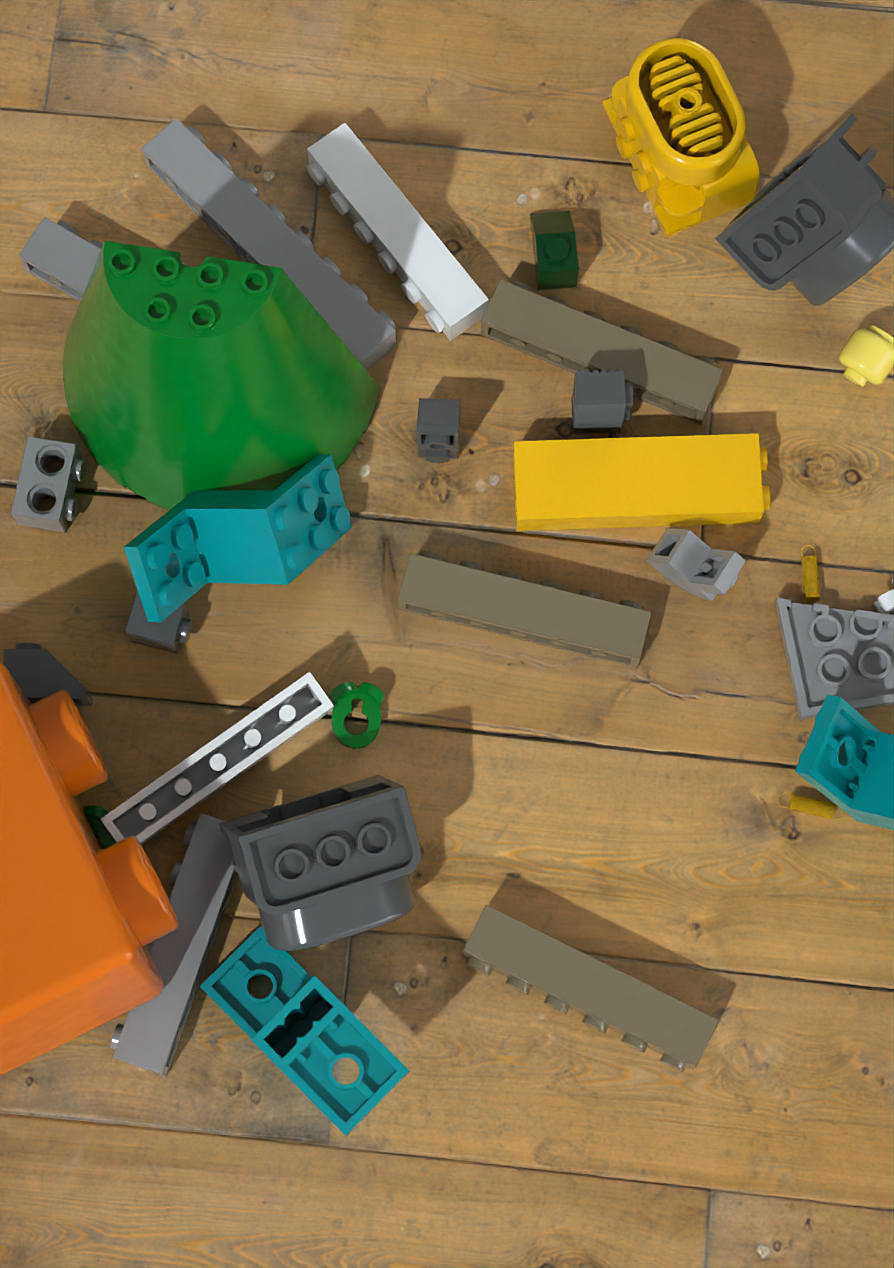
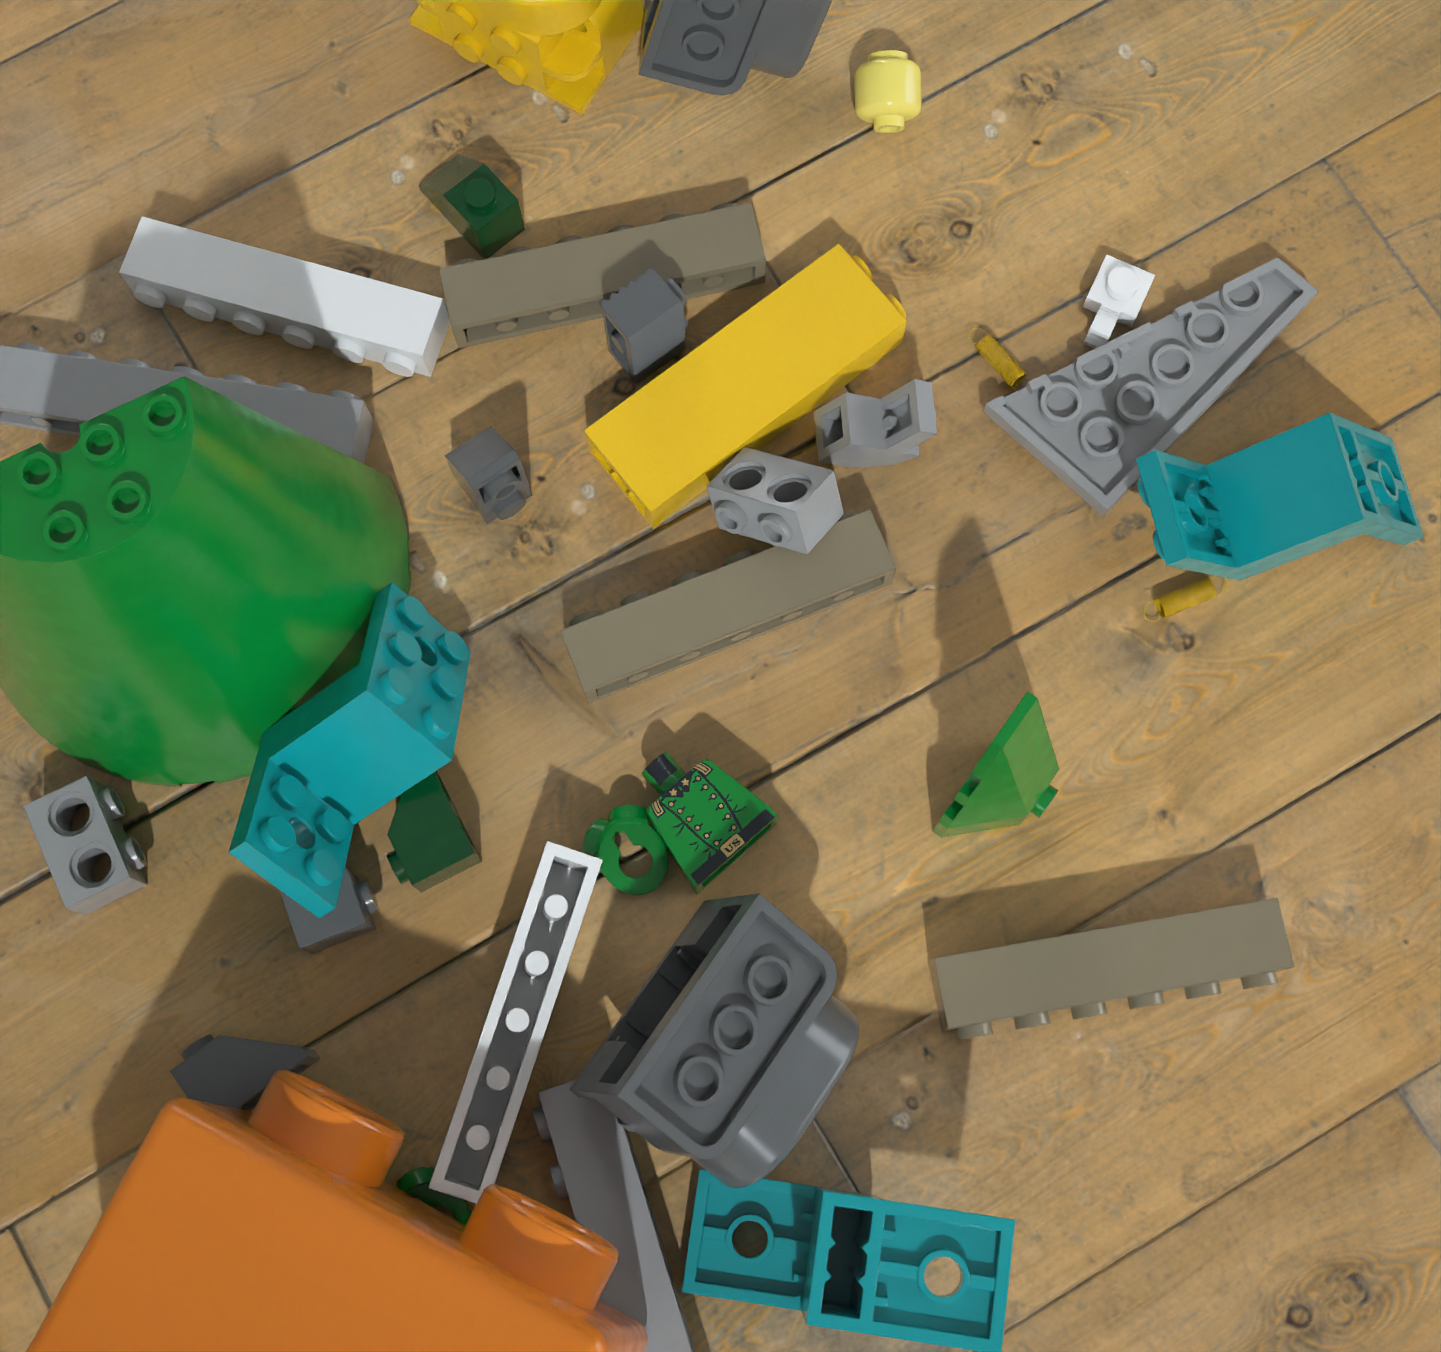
camera: 35 degrees left, 0 degrees up
(246, 621) = (429, 836): none -> dark green slope
(414, 726) = (704, 817): none -> green torso
(597, 565) = (776, 500): none -> light grey brick
(605, 828) = (1008, 778): none -> green wedge

